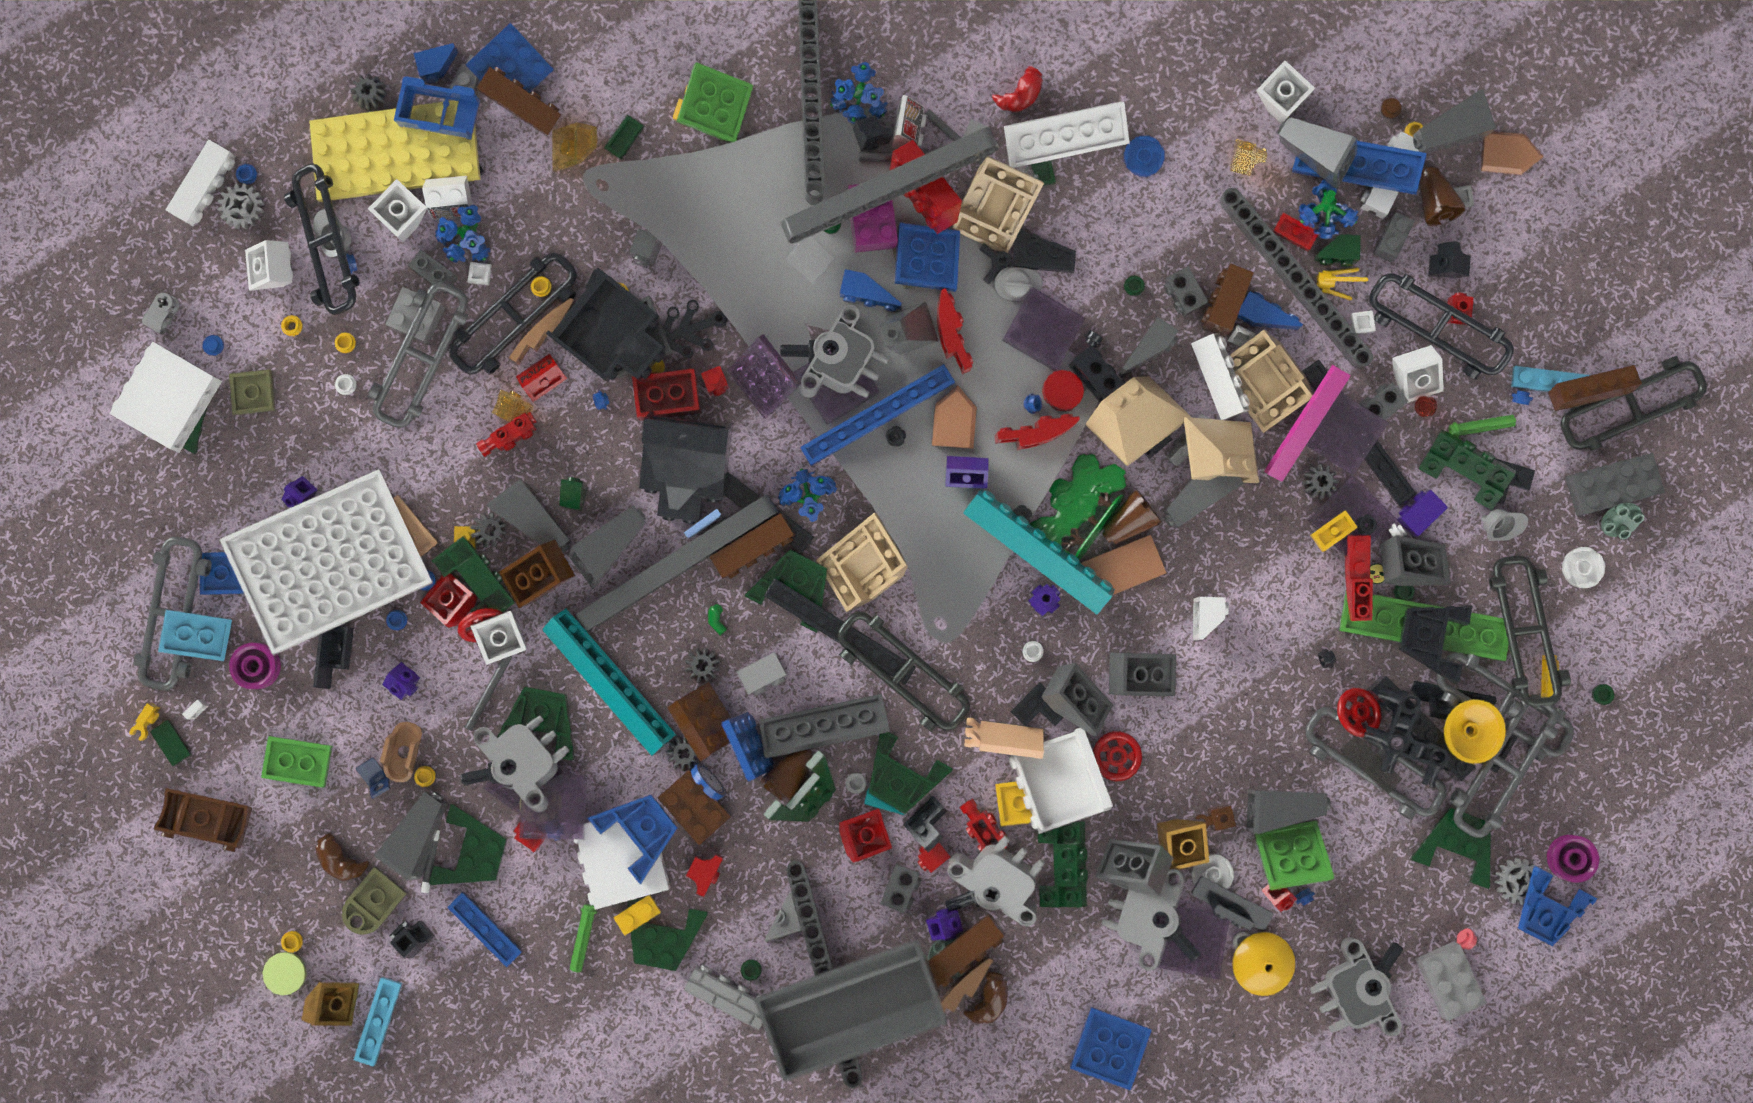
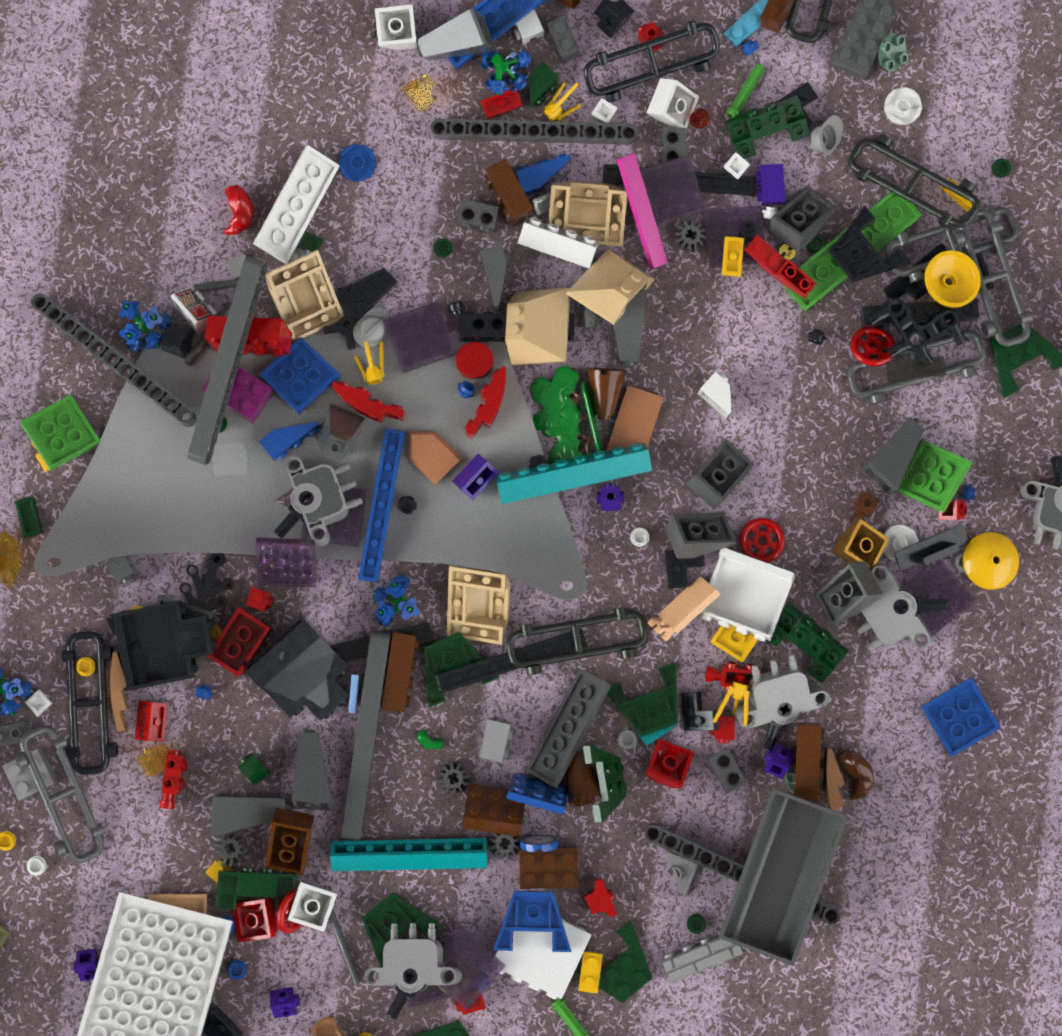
camera: 45 degrees left, 0 degrees up
(973, 843) = (738, 692): none -> yellow plant
(979, 317) = (373, 374): none -> yellow plant
(1412, 470) = (736, 165): none -> white tile

